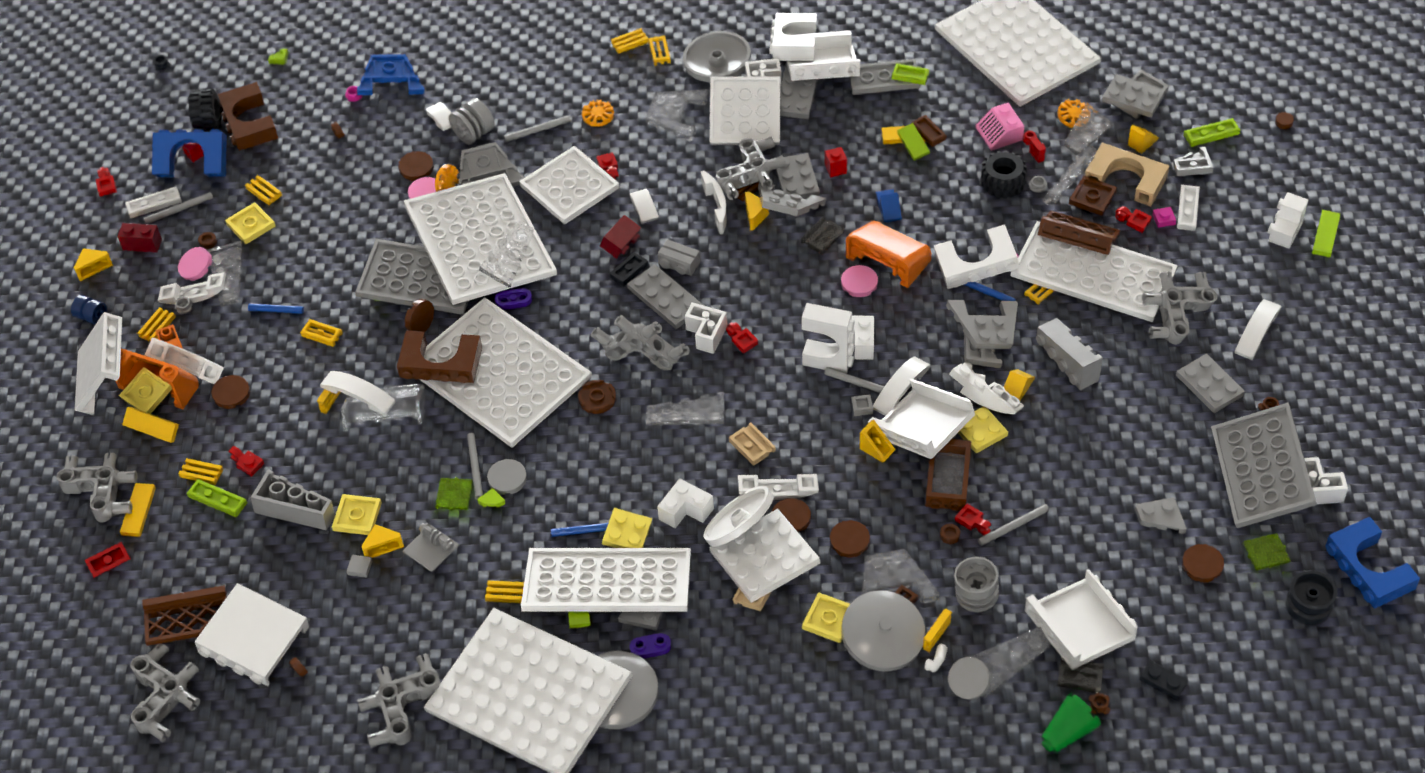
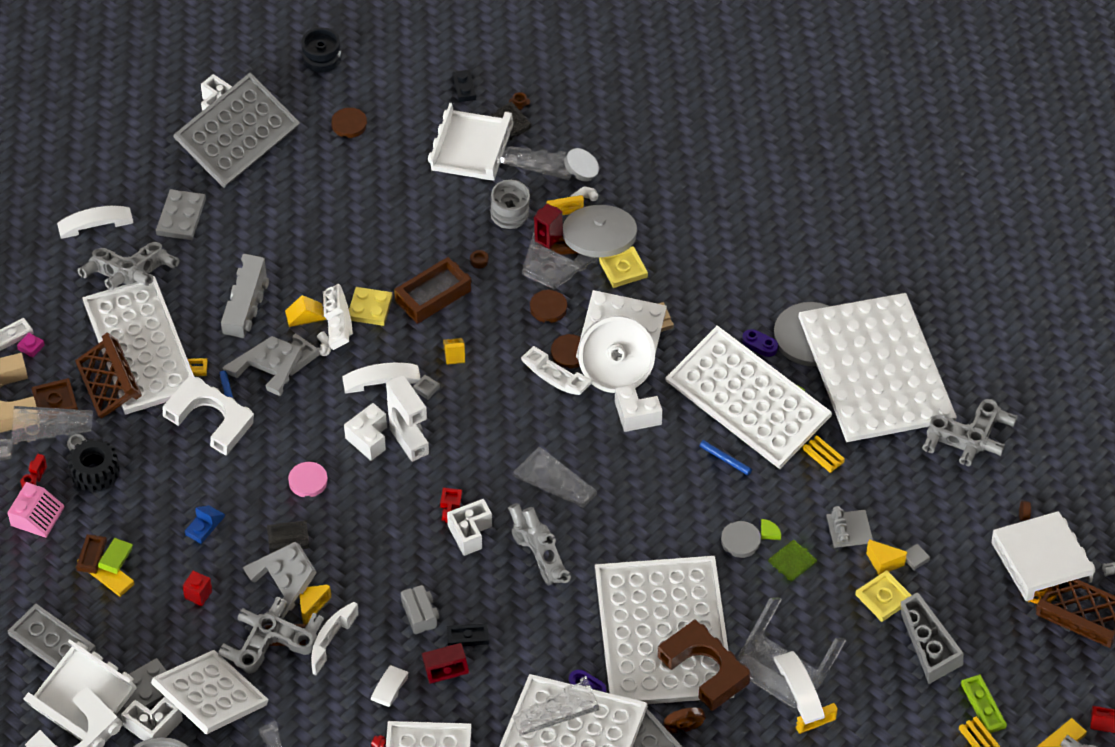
camera: 140 degrees left, 0 degrees up
(247, 462) = (934, 715): red plate -> none
(474, 465) = (756, 568): light grey bar -> none
(597, 396) = (607, 548): reddish brown tile -> none
(626, 530) = (695, 427): light yellow plate -> none
(662, 295) = (465, 590): light grey plate -> none
(752, 444) = (538, 417): tan plate -> none
(798, 176) = (225, 615): light grey plate -> none
(890, 248) = (260, 477): orange windscreen -> none
(910, 74) = (34, 615): lime tile -> none
(918, 581) = (548, 225): none -> dark red brick
(926, 419) = (407, 328): white panel -> none
(971, 517) = (455, 251): red plate -> none
(1013, 525) = (431, 232): light grey bar -> none
(1069, 724) = (556, 96): green cone -> none
(1137, 220) = (54, 356): red plate -> none
(1161, 514) = (332, 166): light grey wing -> none
(1266, 551) = (301, 101): clear neon green piece -> none
(1268, 402) = (169, 169): reddish brown plate -> none
(1375, 586) = (256, 61): blue arch -> none

